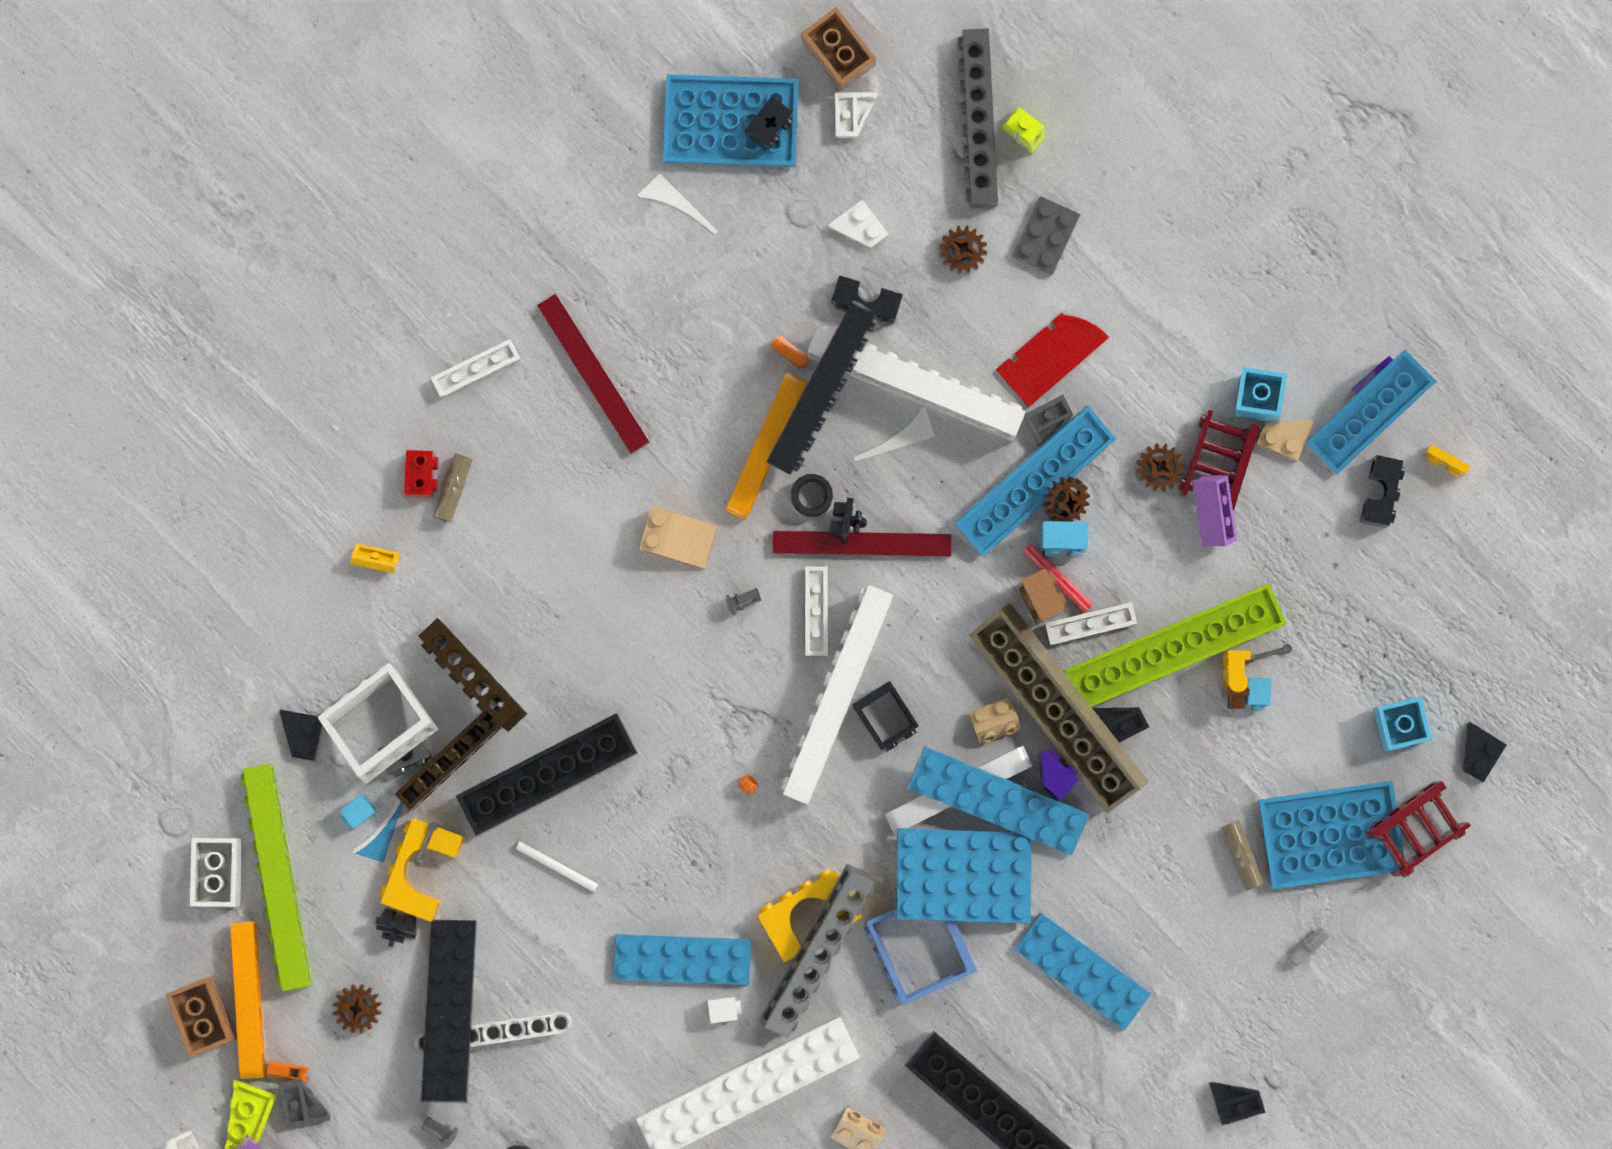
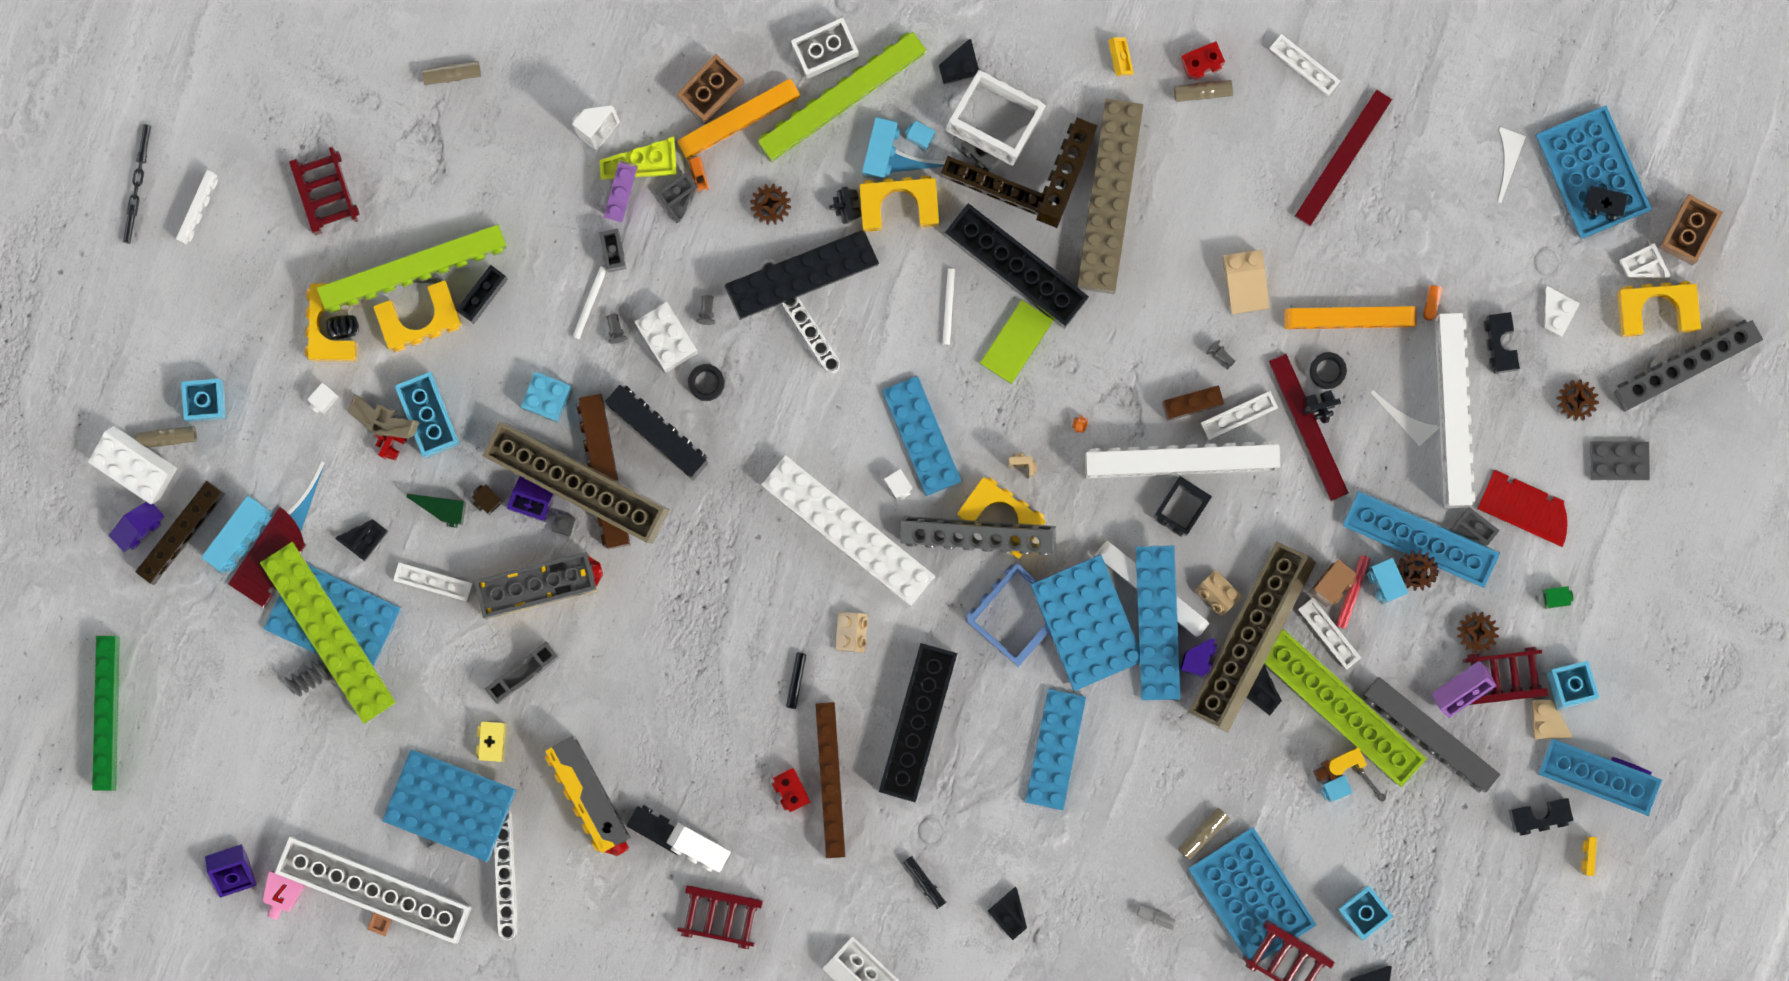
camera: 65 degrees right, 0 degrees up
(353, 861) = (881, 149): none -> medium azure brick
(432, 827) = (935, 196): dark grey hinge -> none
(519, 639) = (1110, 196): none -> dark tan brick
(628, 811) = (1016, 342): none -> lime tile
(757, 868) = (1020, 461): none -> tan bracket
(780, 654) = (1193, 403): none -> reddish brown brick
(822, 387) = (1416, 337): black brick -> none
(904, 90) = (1682, 296): none -> yellow arch
(1024, 130) = (1695, 404): neon yellow torso -> none
(1160, 367) = (1557, 597): none -> green brick
(1246, 566) = (1431, 734): none -> dark grey brick

